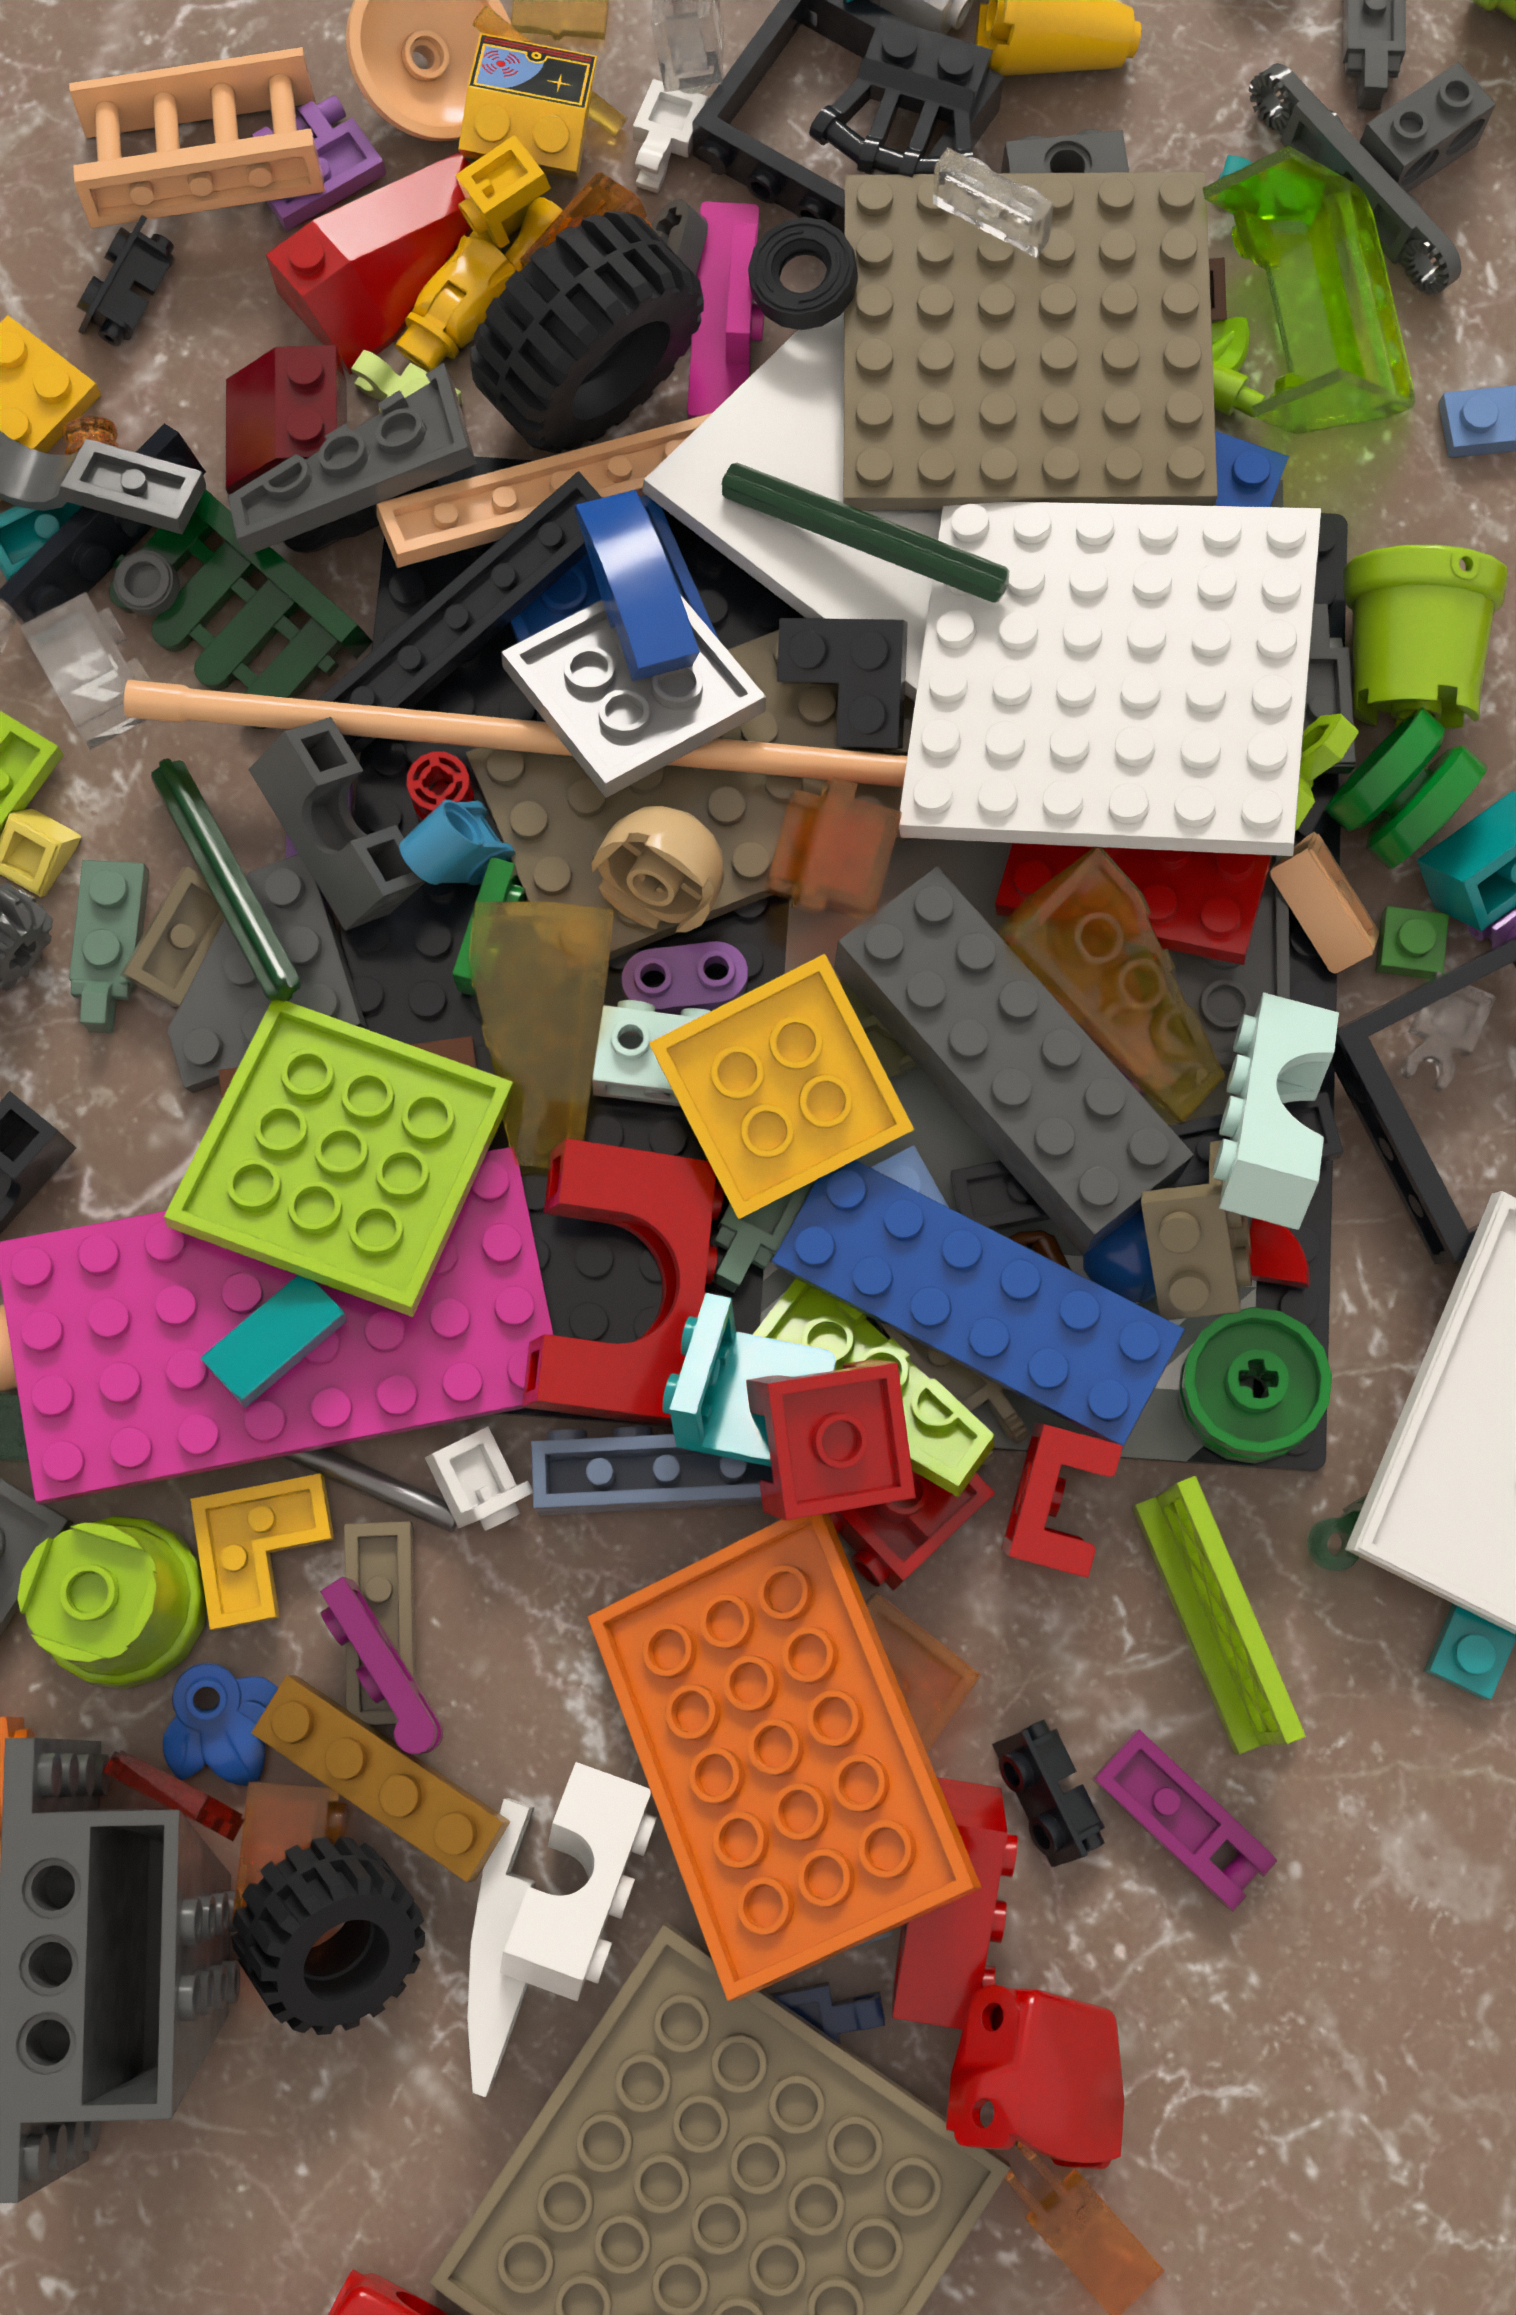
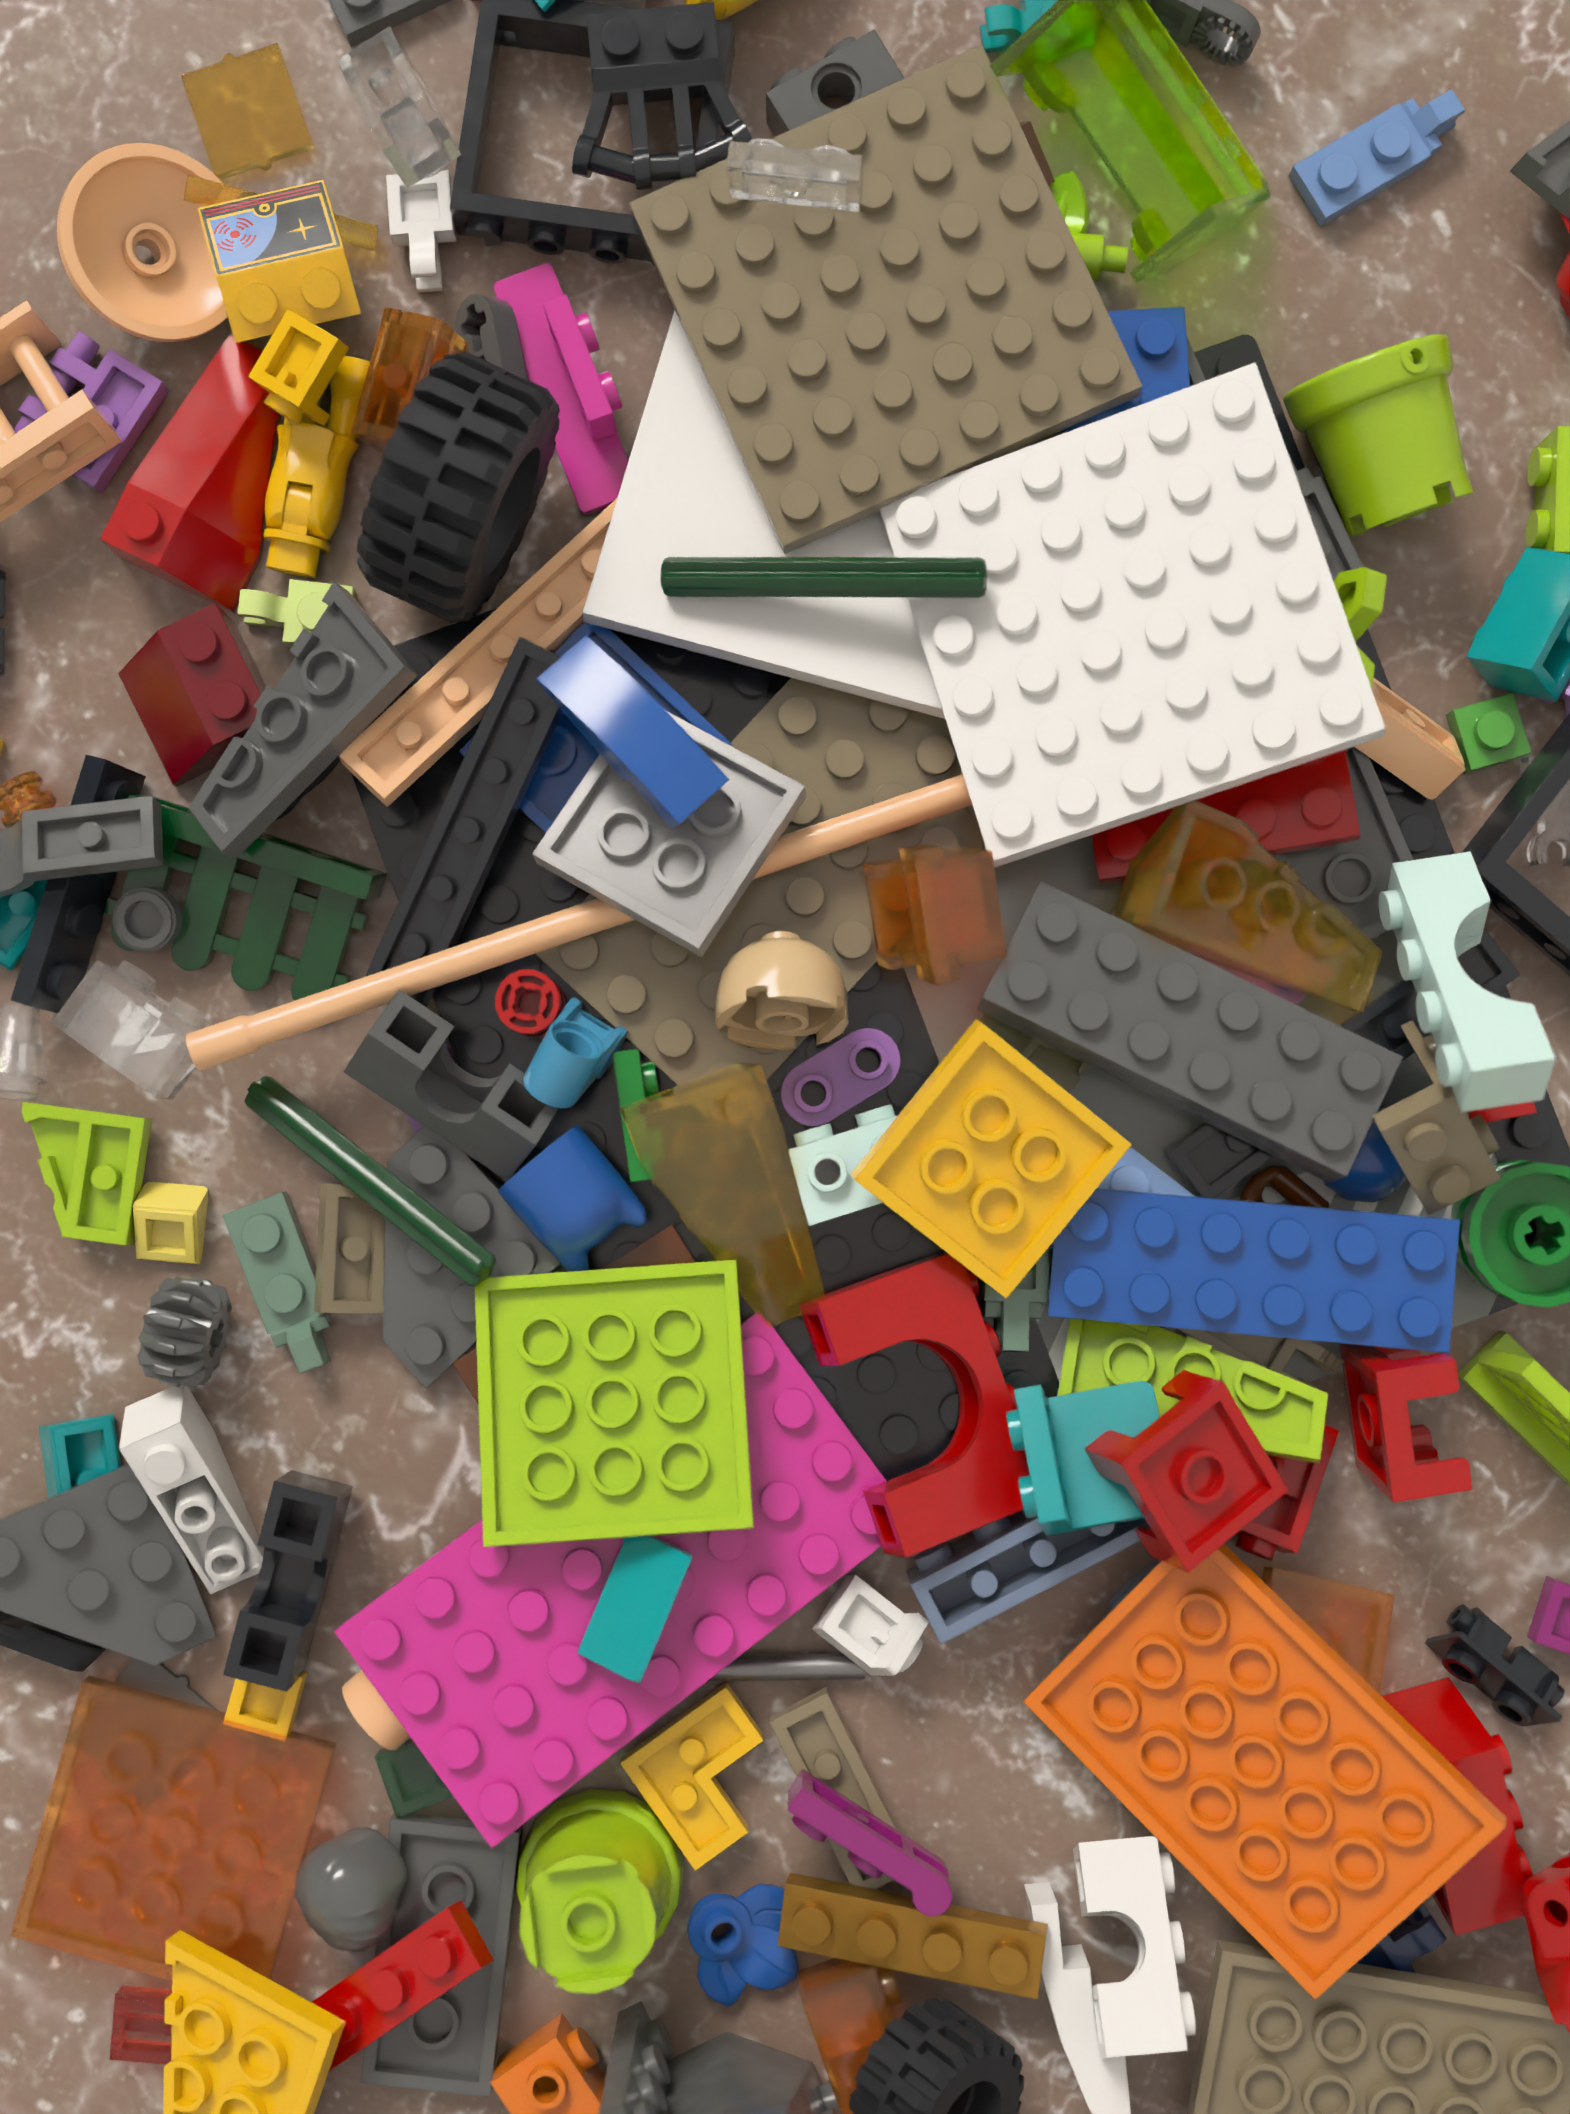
camera: 25 degrees left, 10 degrees up
(174, 1794) = (739, 2035): clear red tile -> none
(393, 963) = (572, 1199): none -> blue piece
(796, 239) = (613, 298): black tyre -> none
(864, 661) = (874, 703): black plate -> none
(1414, 796) = (1439, 595): green wheel -> none

